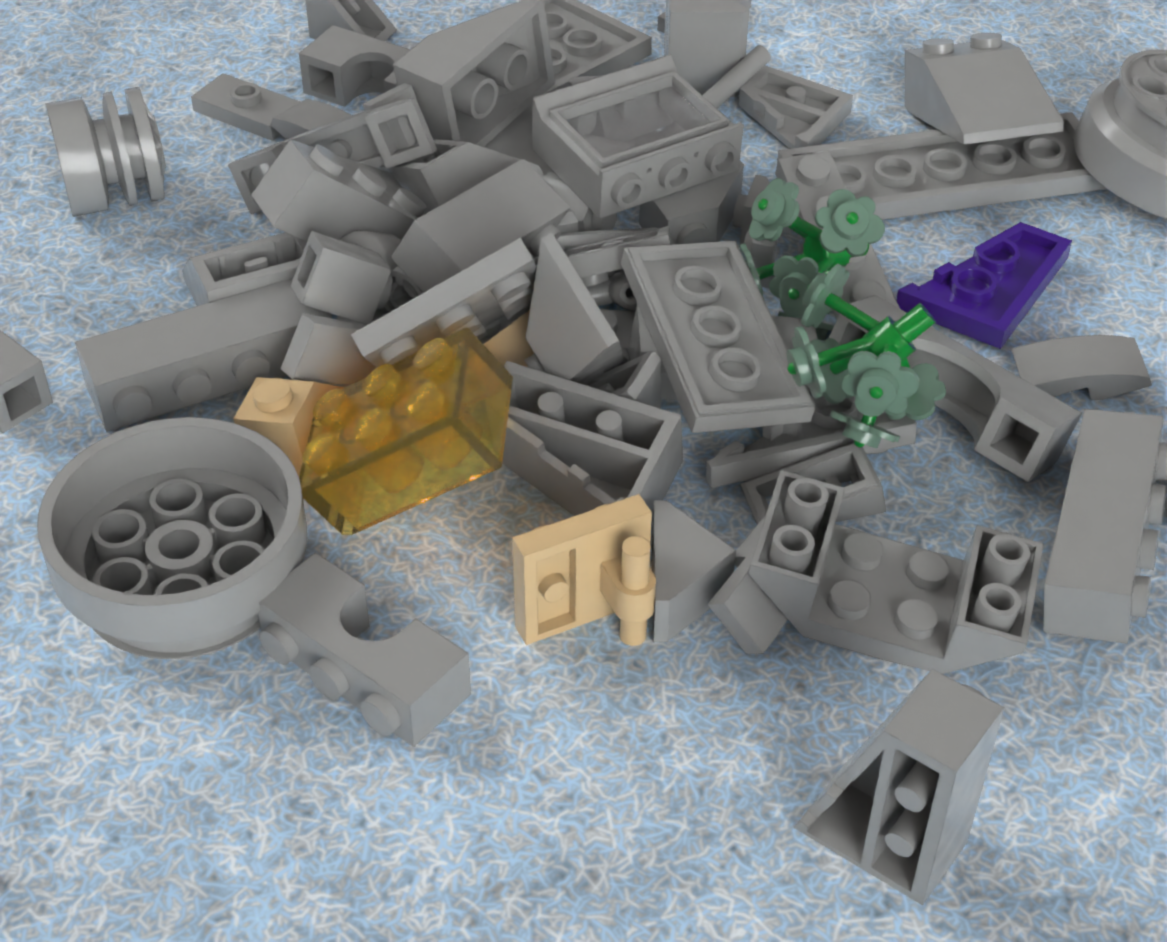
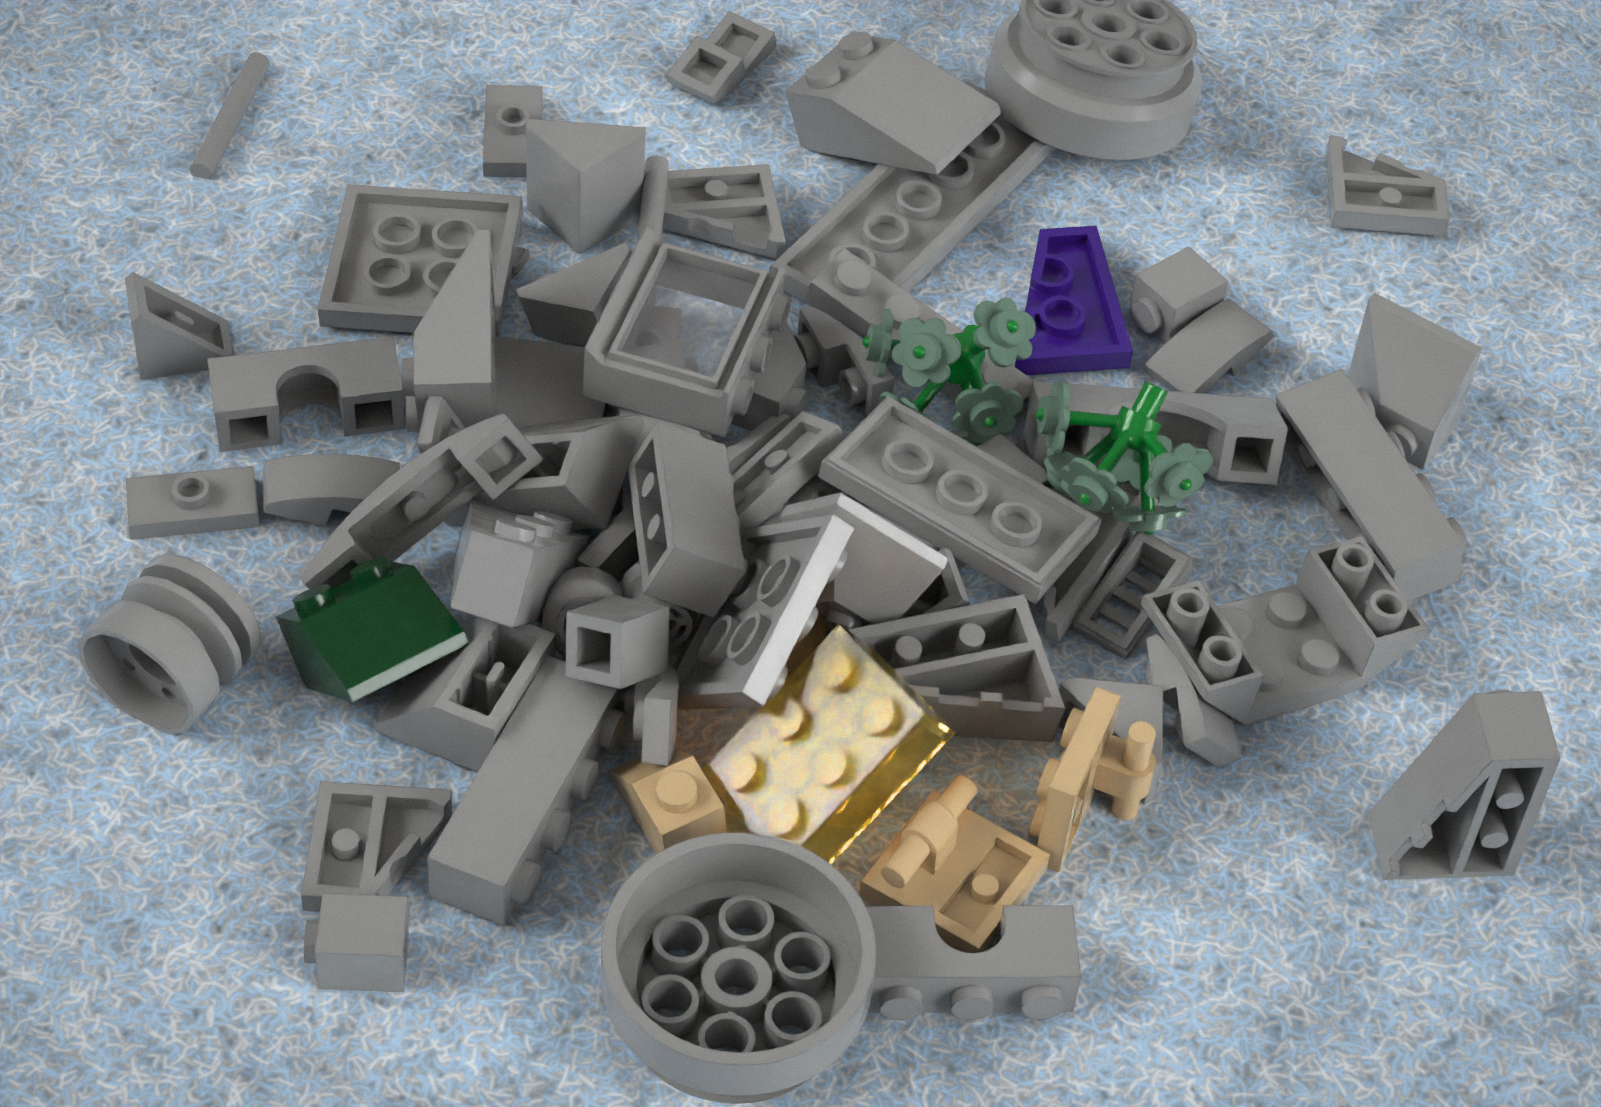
camera: 45 degrees left, 5 degrees up
(80, 315) = (368, 837): none -> light grey wing
(212, 203) = (368, 630): none -> dark green slope
(436, 573) = (958, 866): none -> tan plate
(889, 36) = (723, 60): none -> light grey slope
(1087, 308) = (1175, 293): none -> light grey brick

